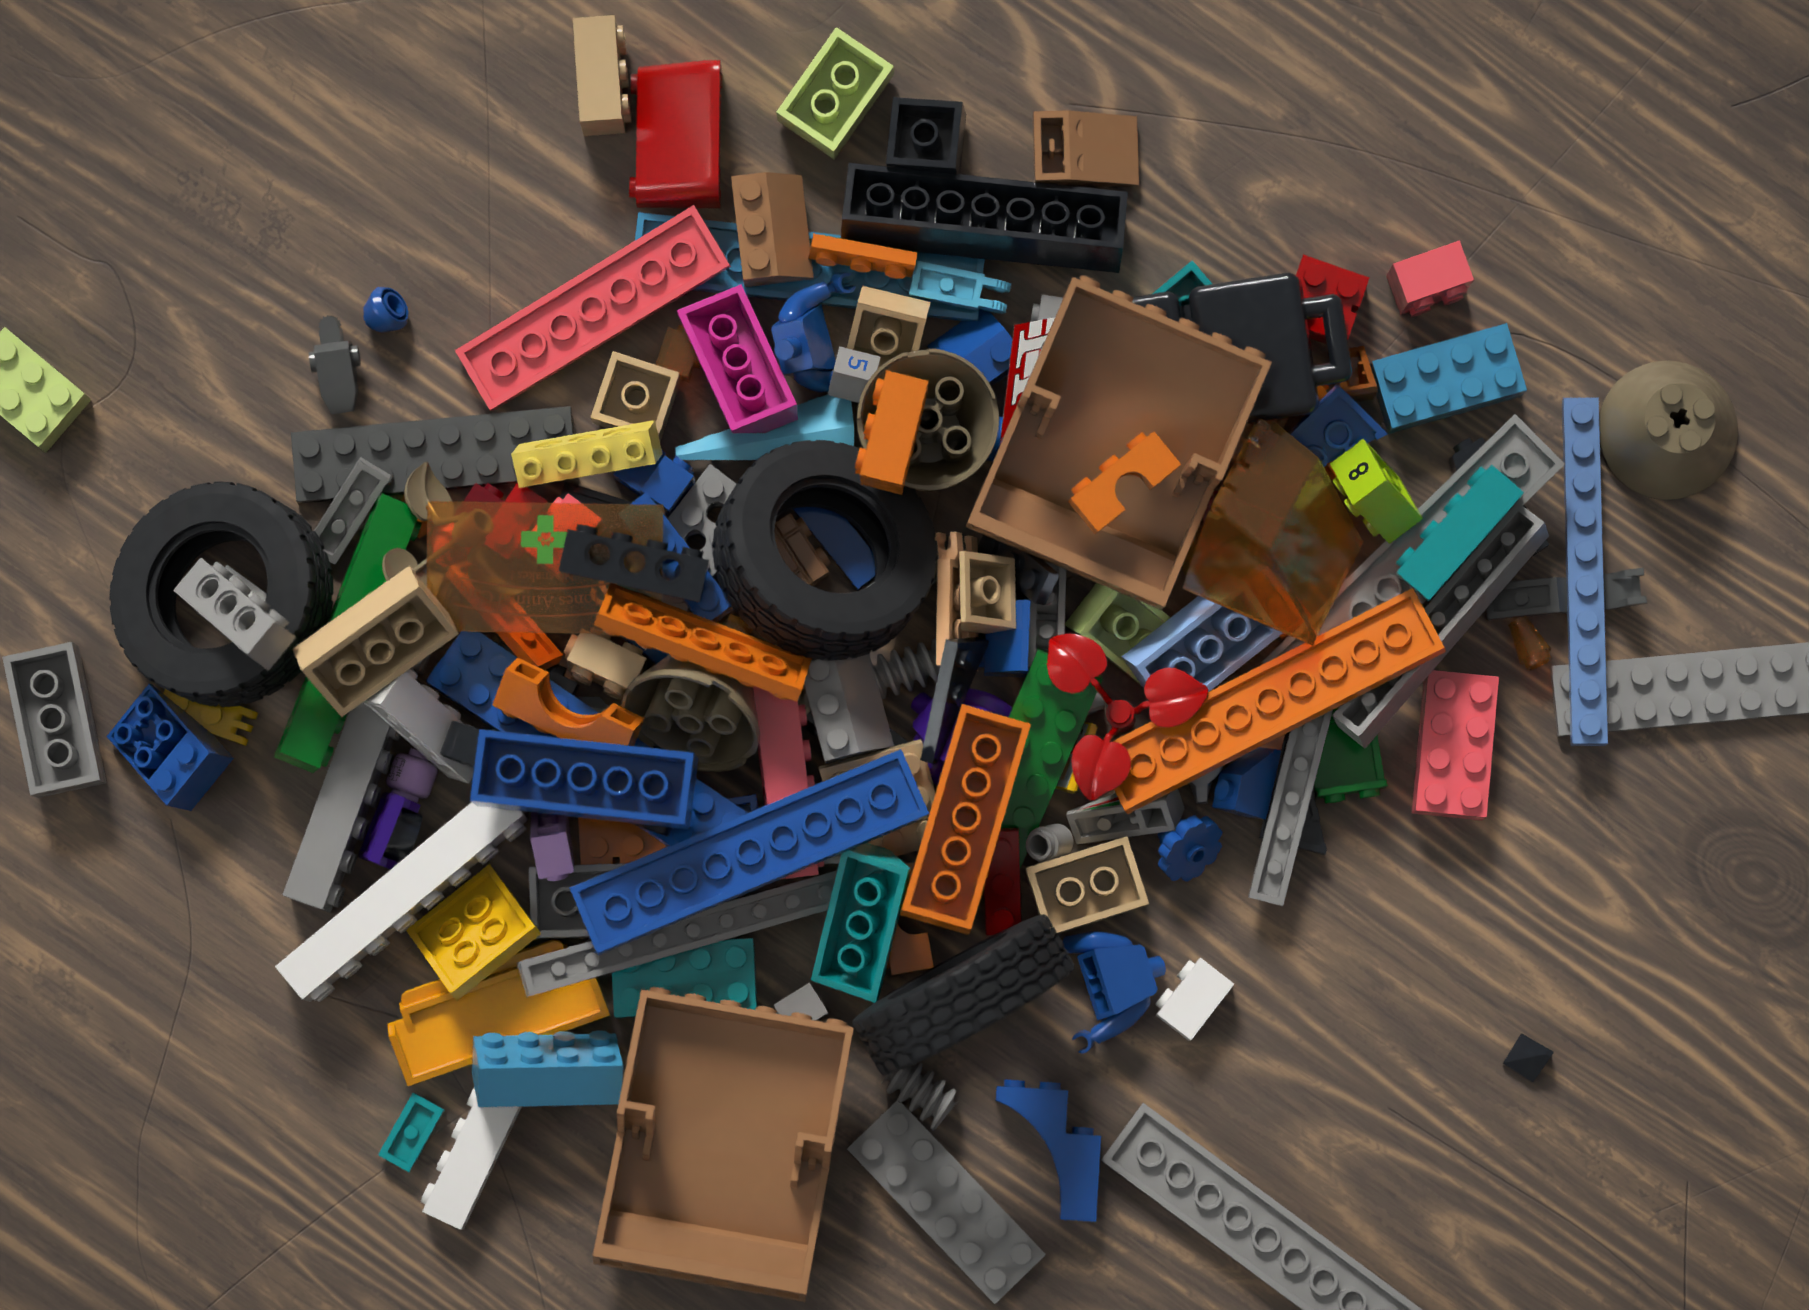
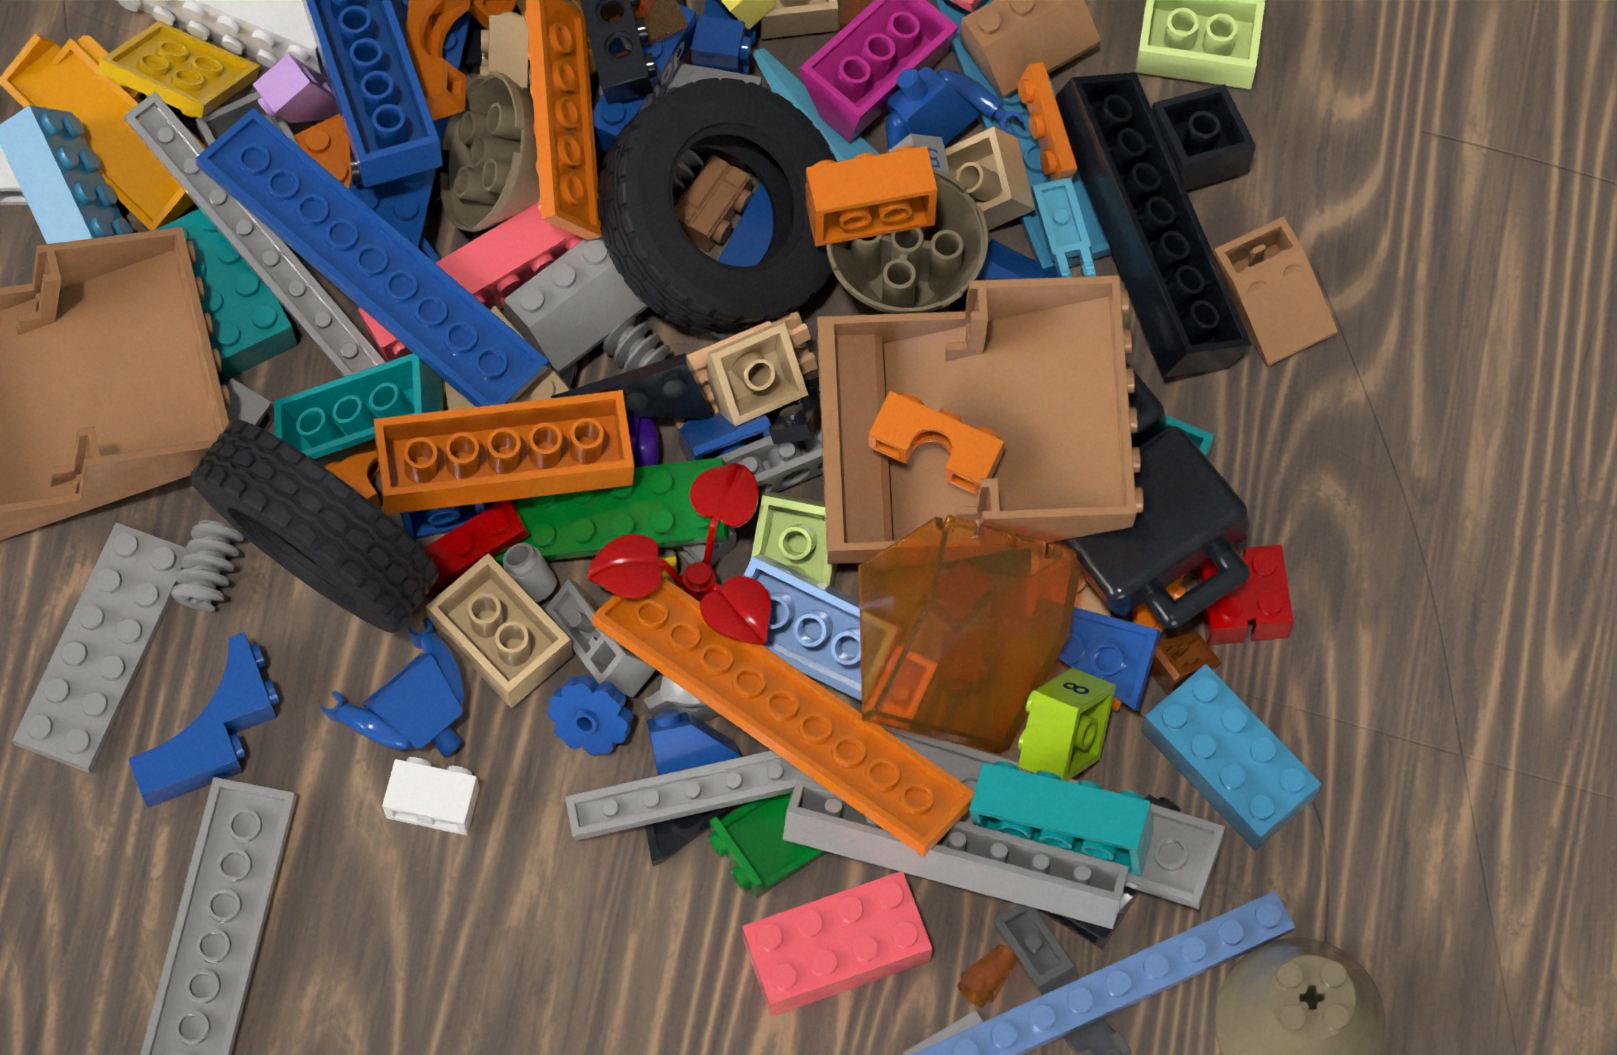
camera: 65 degrees right, 15 degrees down
(1430, 278) = (1326, 686): coral piece -> none

